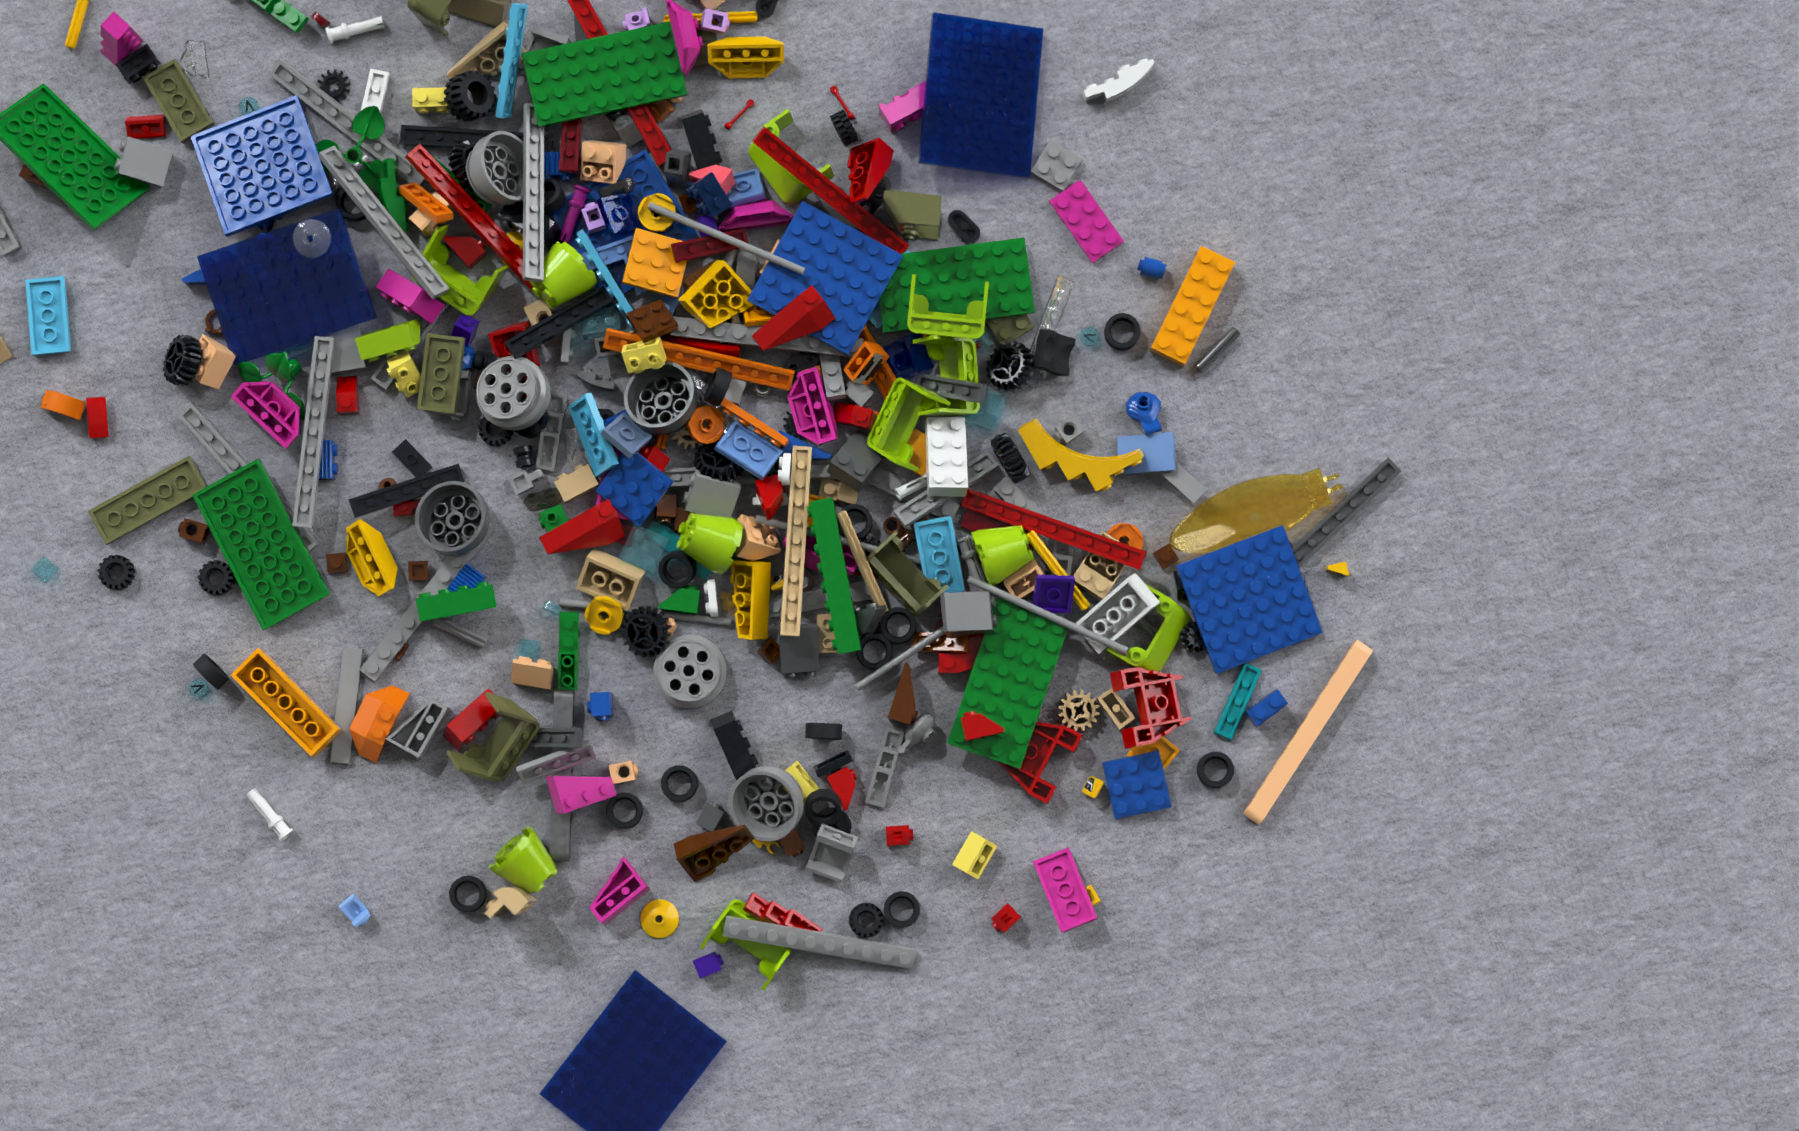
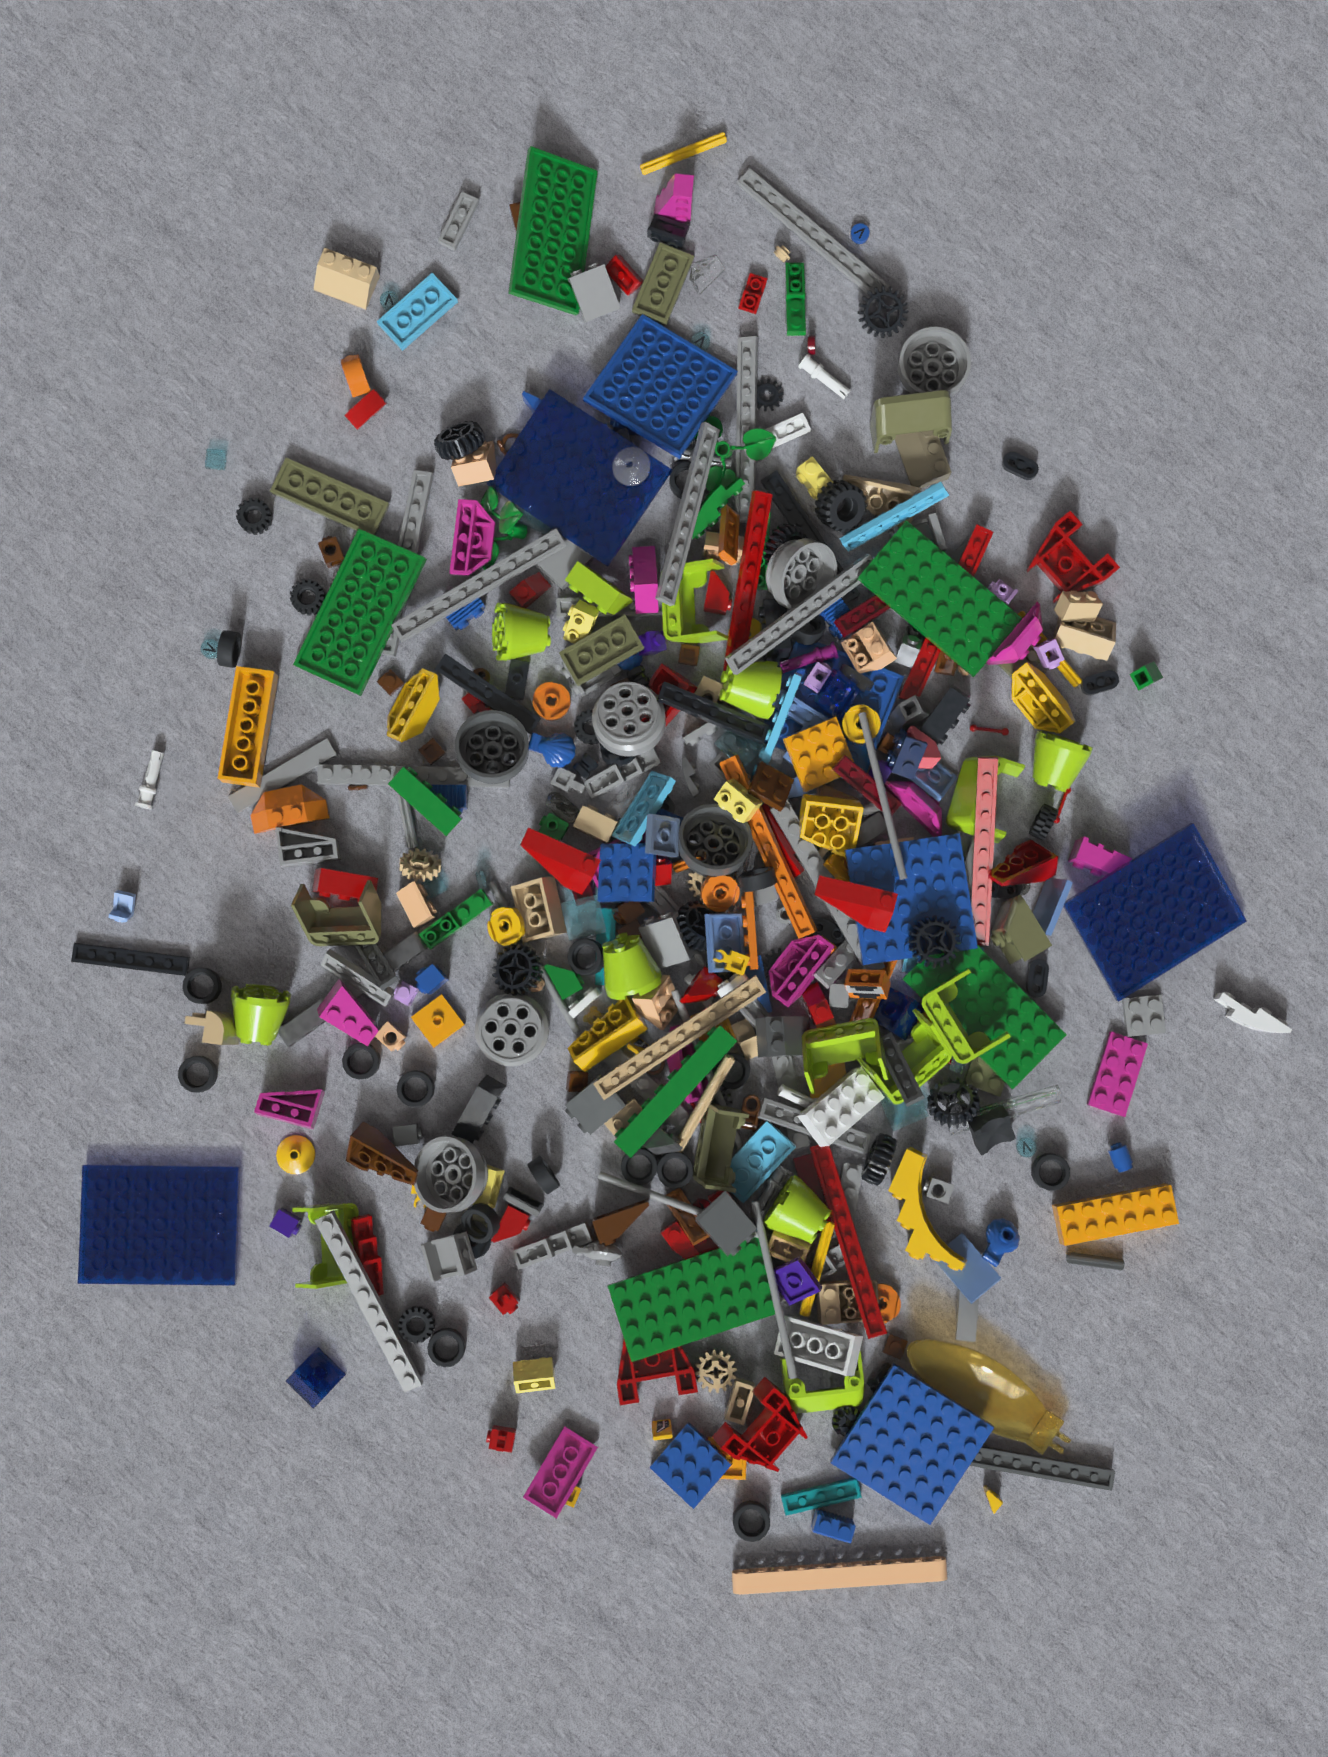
camera: 45 degrees right, 0 degrees up
(20, 332) = (388, 300): none -> clear light blue tile
(242, 34) = (753, 293): none -> red slope
(375, 428) = (519, 632): none -> lime cone
(402, 936) = (130, 959): none -> black tile
(444, 436) = (561, 705): none -> orange plate
(493, 469) = (556, 749): none -> blue animal
(497, 307) = (688, 655): none -> reddish brown plate
(502, 648) = (420, 865): none -> tan gear
(521, 949) = (182, 1074): none -> black tyre
(597, 734) = (405, 993): none -> lavender brick
(638, 726) = (437, 1021): none -> light orange plate
(769, 454) = (734, 961): none -> yellow plate
(804, 79) = (1058, 760): none -> lime cone
(847, 1030) = (315, 1377): none -> clear blue slope
(879, 282) = (941, 946): none -> black gear
(912, 171) = (1051, 903): none -> medium blue tile
(978, 726) = (639, 1303): red slope -> none

